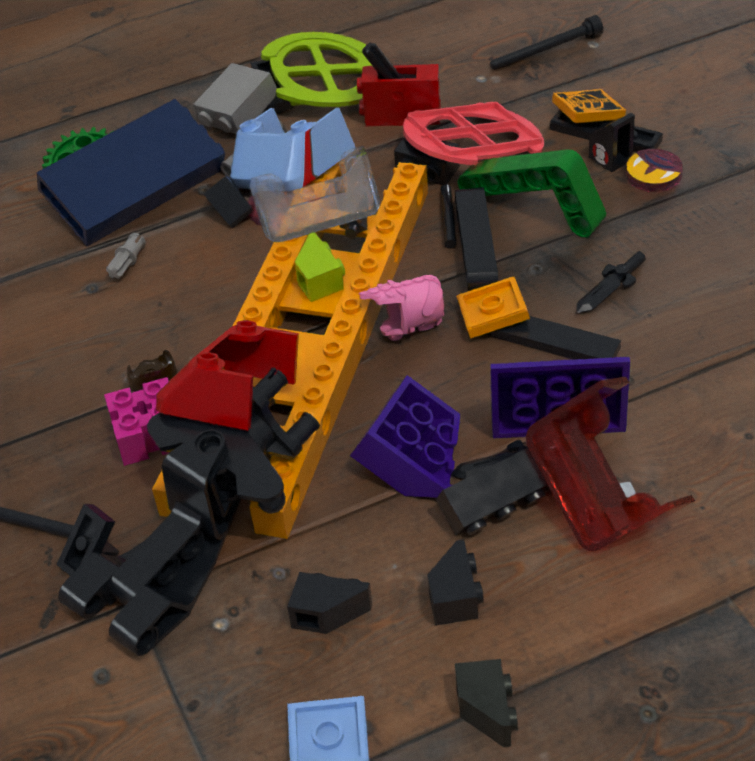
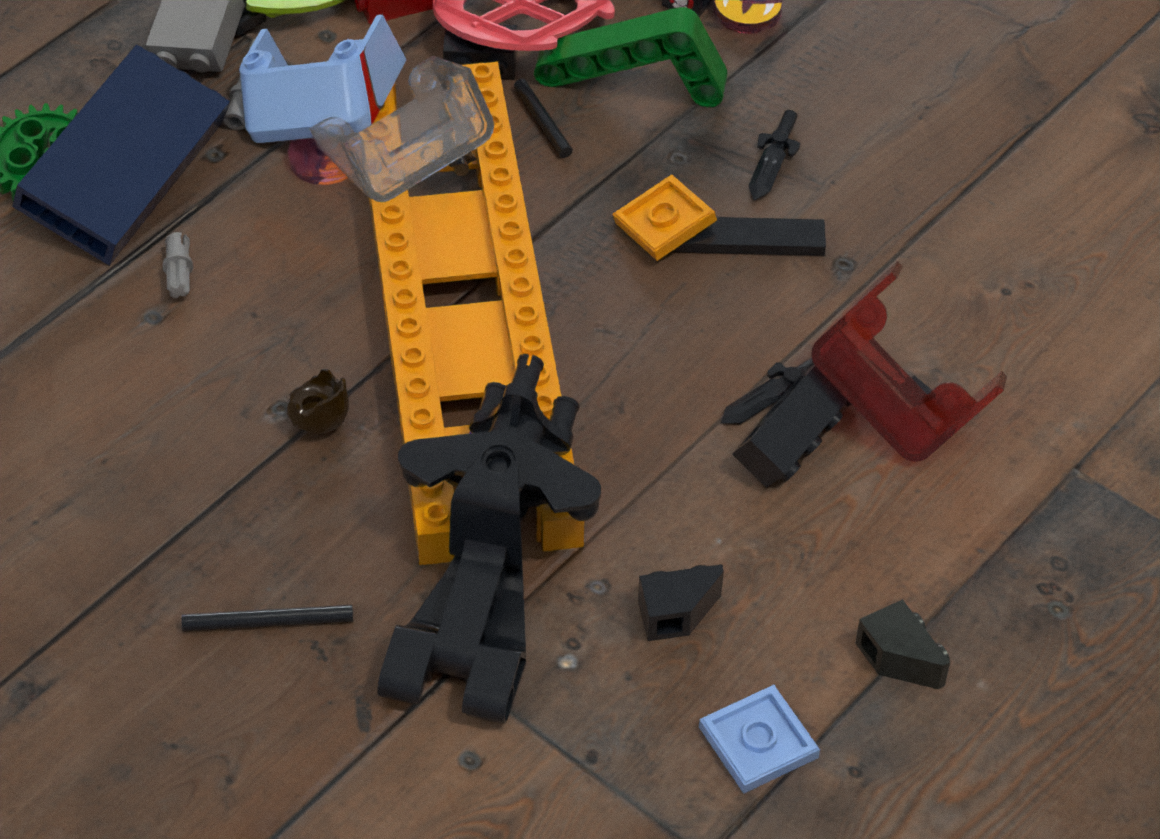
camera: 30 degrees left, 5 degrees up
(87, 536) = (370, 620): black slope -> none
(130, 419) = (343, 460): dark pink brick -> none
(219, 379) = (442, 384): red windscreen -> none
(229, 201) = (267, 162): black slope -> none
(318, 270) = (450, 223): lime slope -> none
(408, 305) = (585, 227): bright pink helmet -> none
(411, 442) = (667, 397): dark purple wedge -> none
(452, 588) = (805, 543): black slope -> none
(475, 238) = (596, 138): black beam -> none
(531, 390) = (800, 304): dark purple slope -> none

